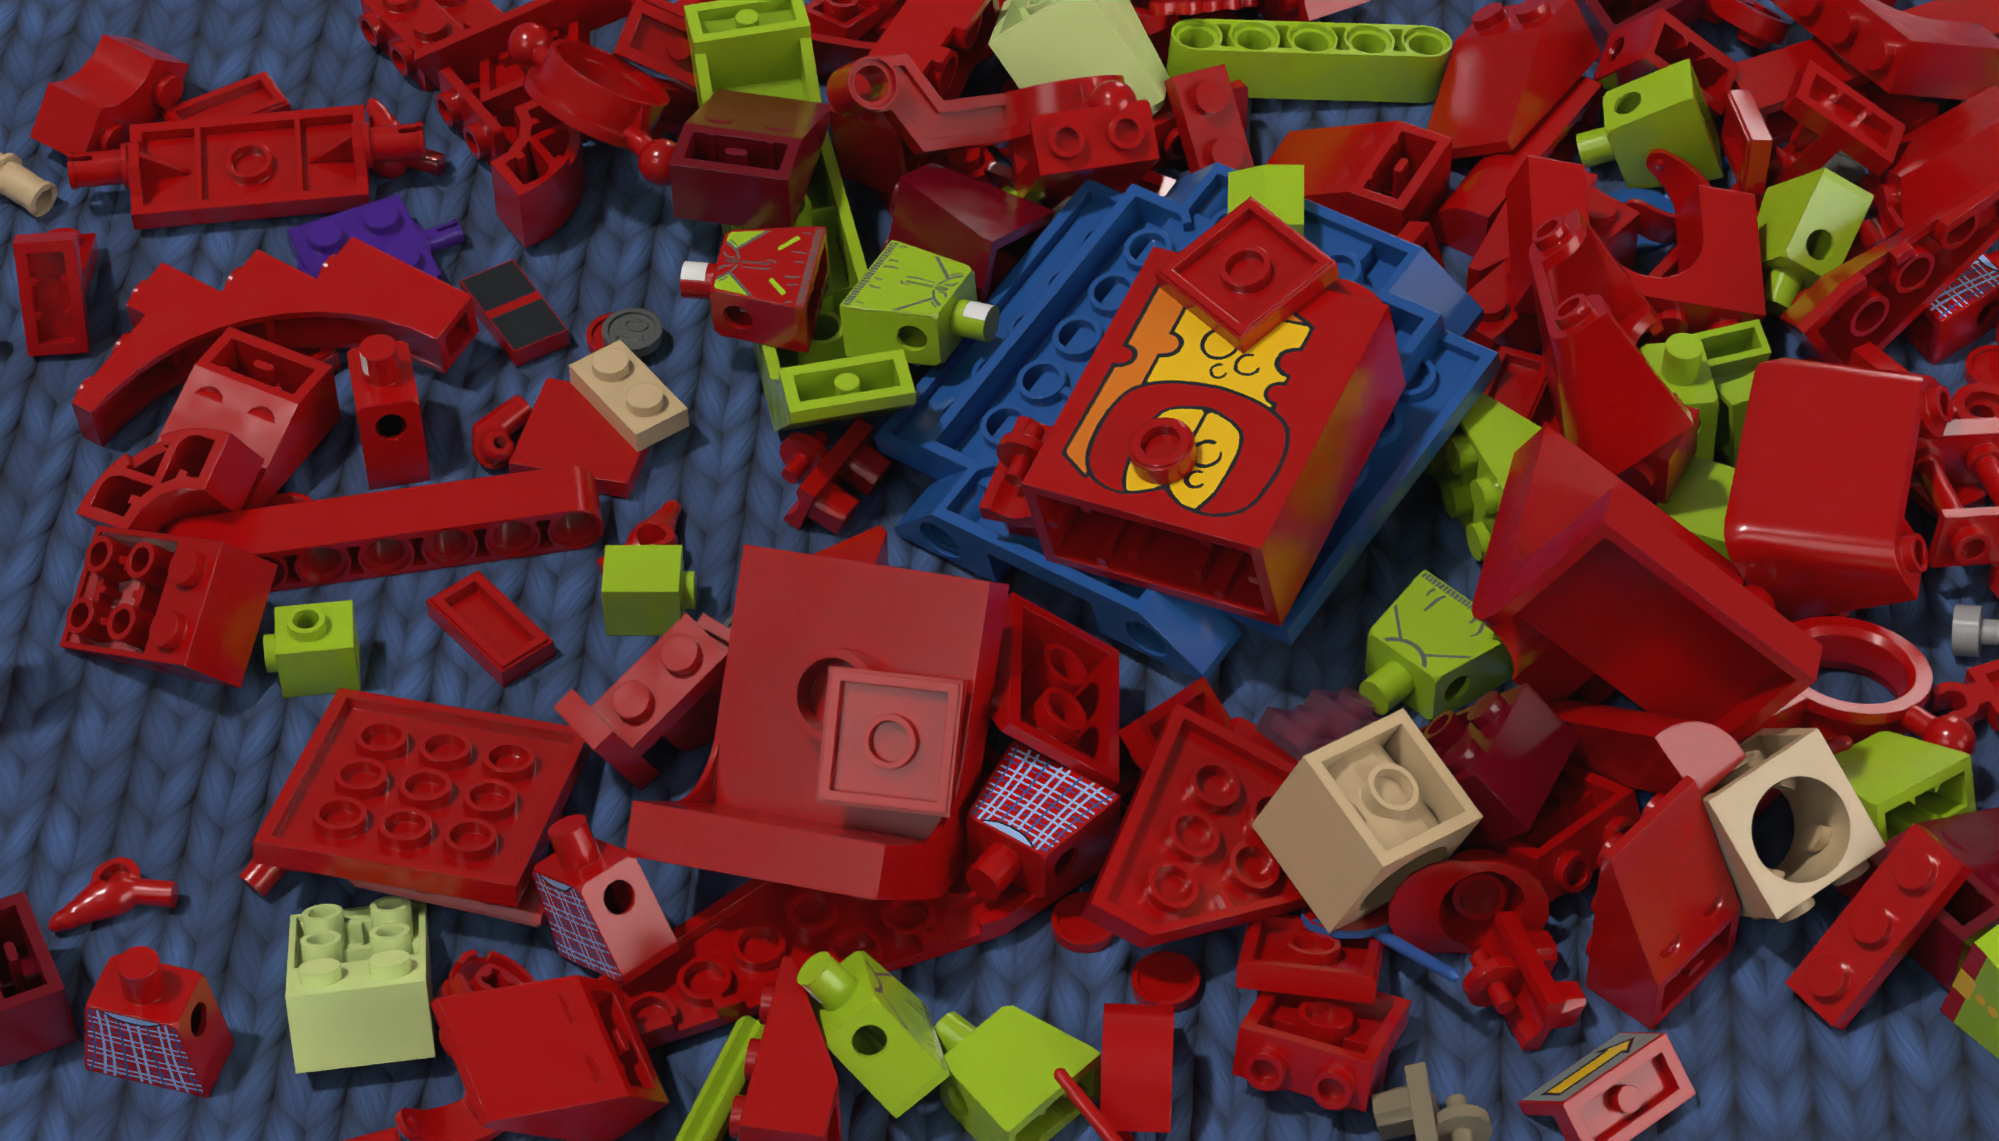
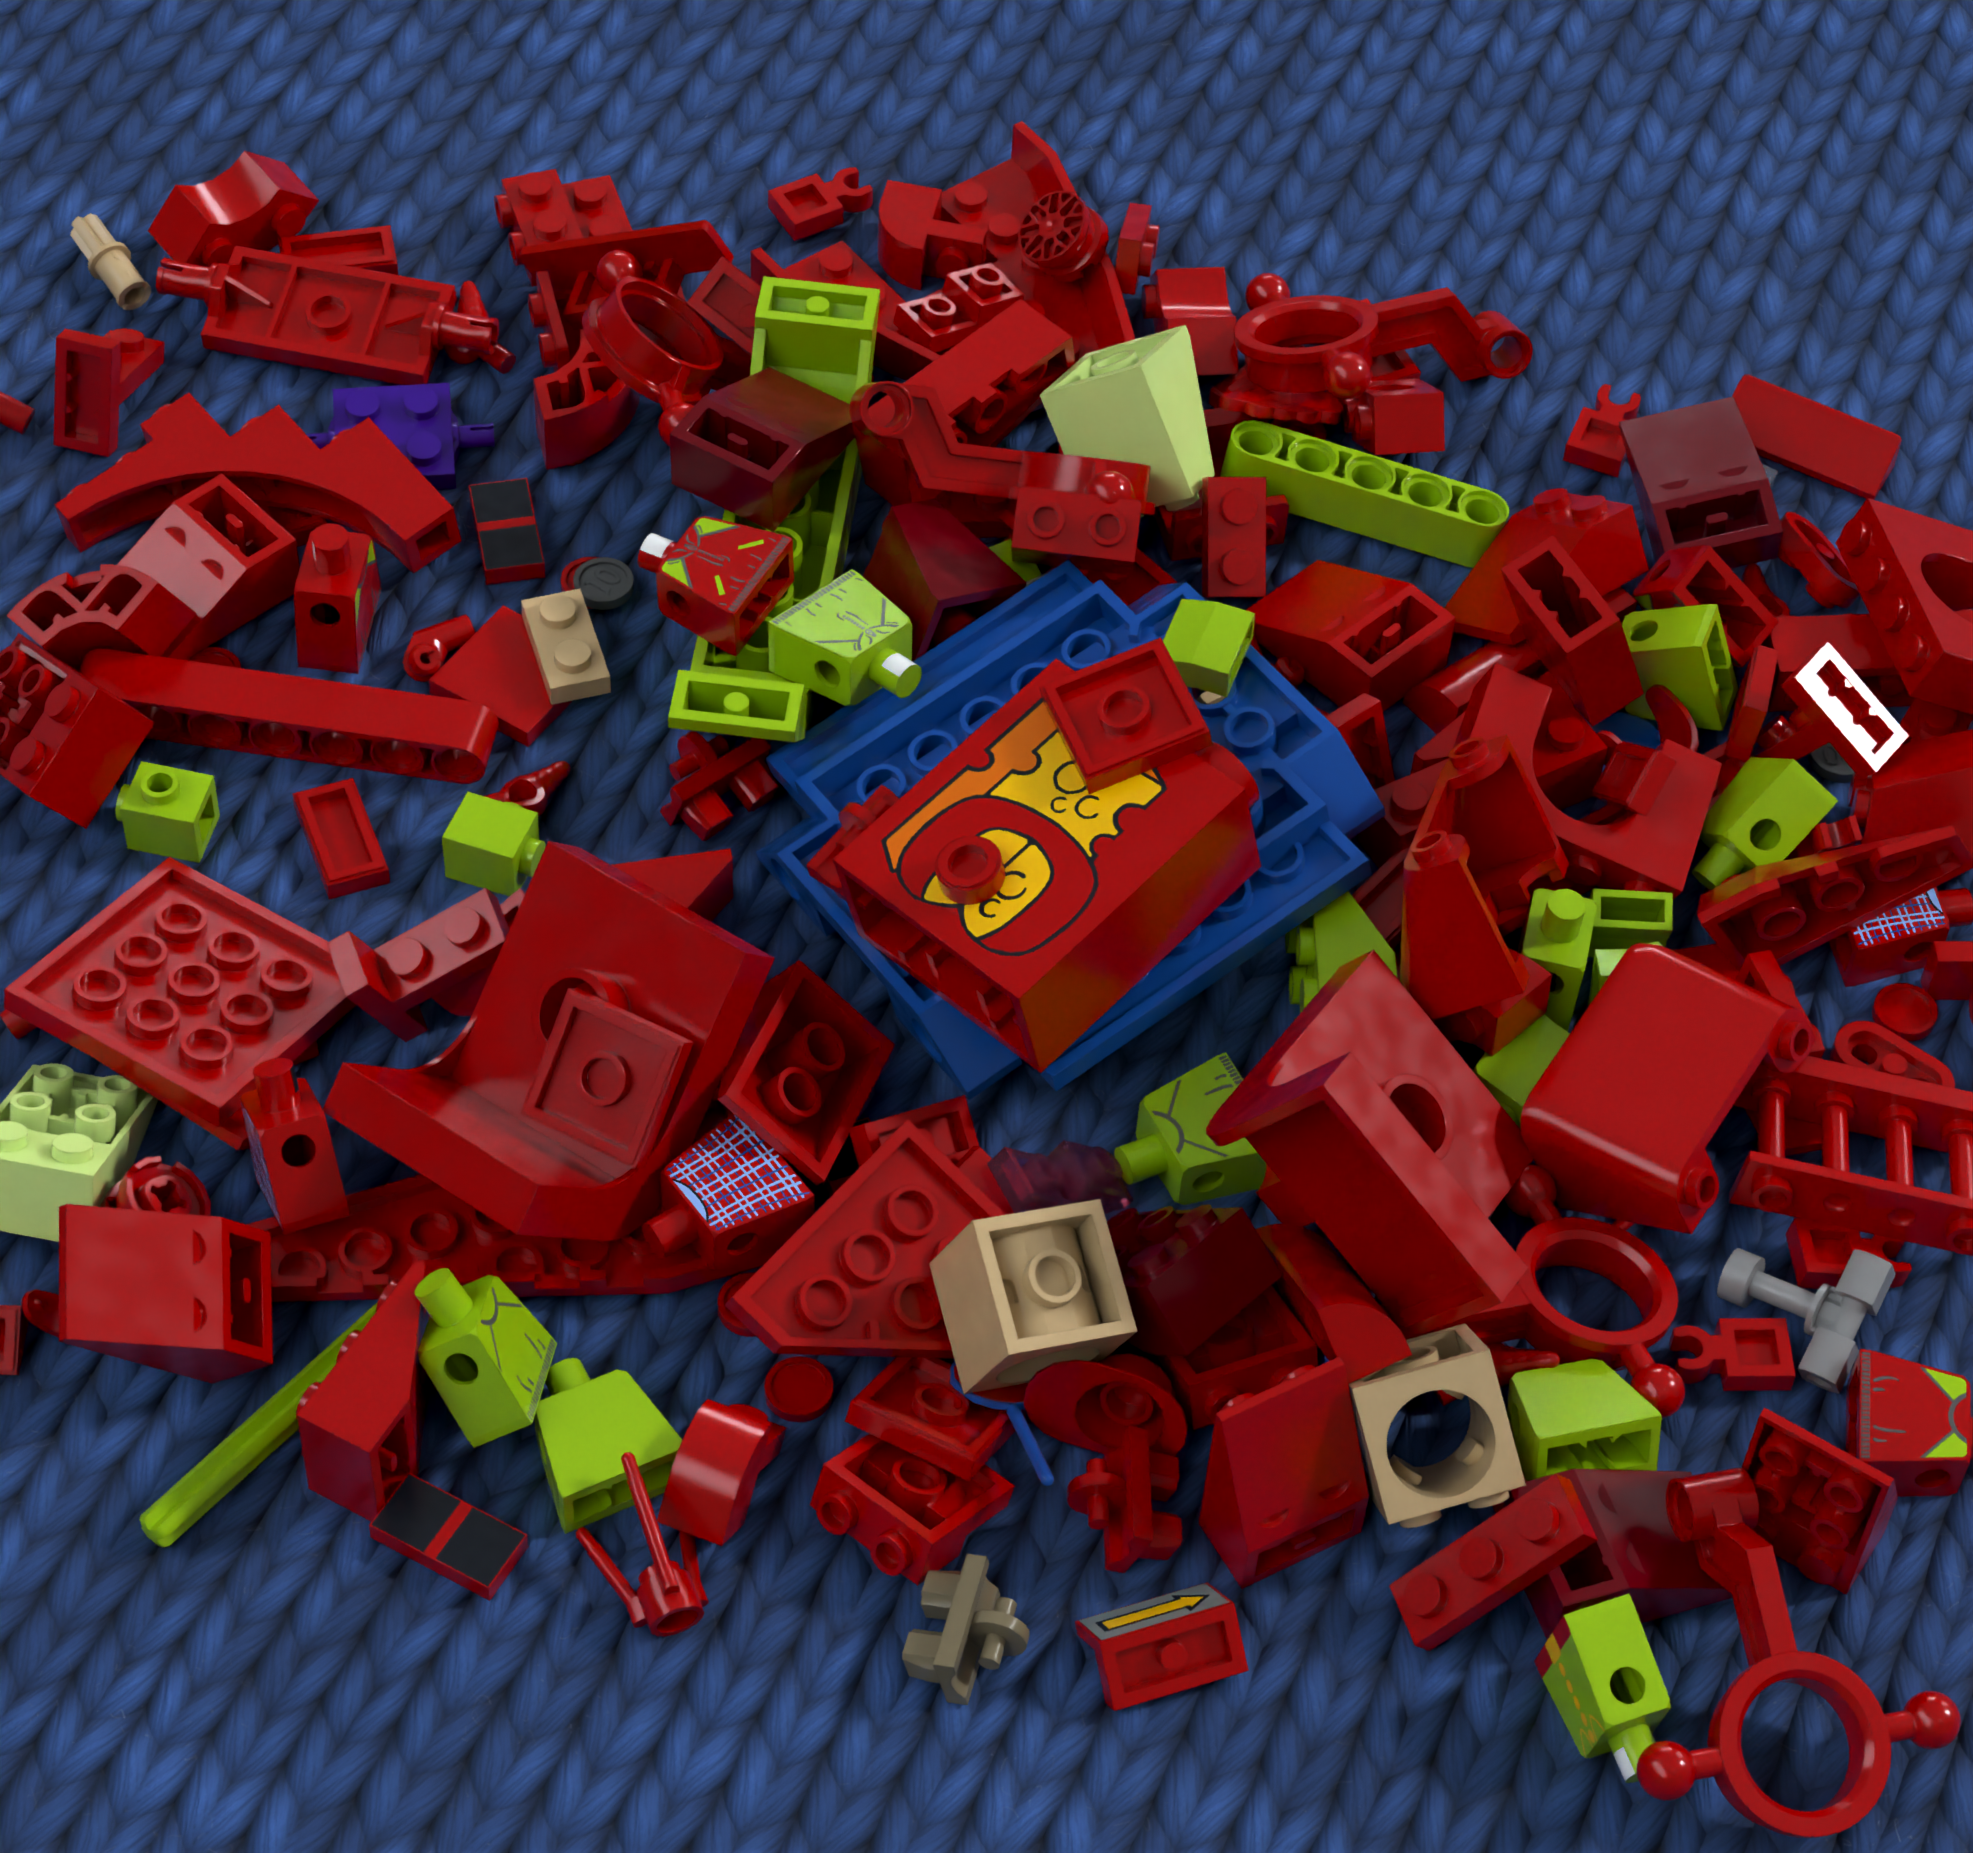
camera: 15 degrees right, 5 degrees up
(1576, 112) = (1572, 630): none -> red brick
(1683, 228) = (1634, 777): none -> red tile

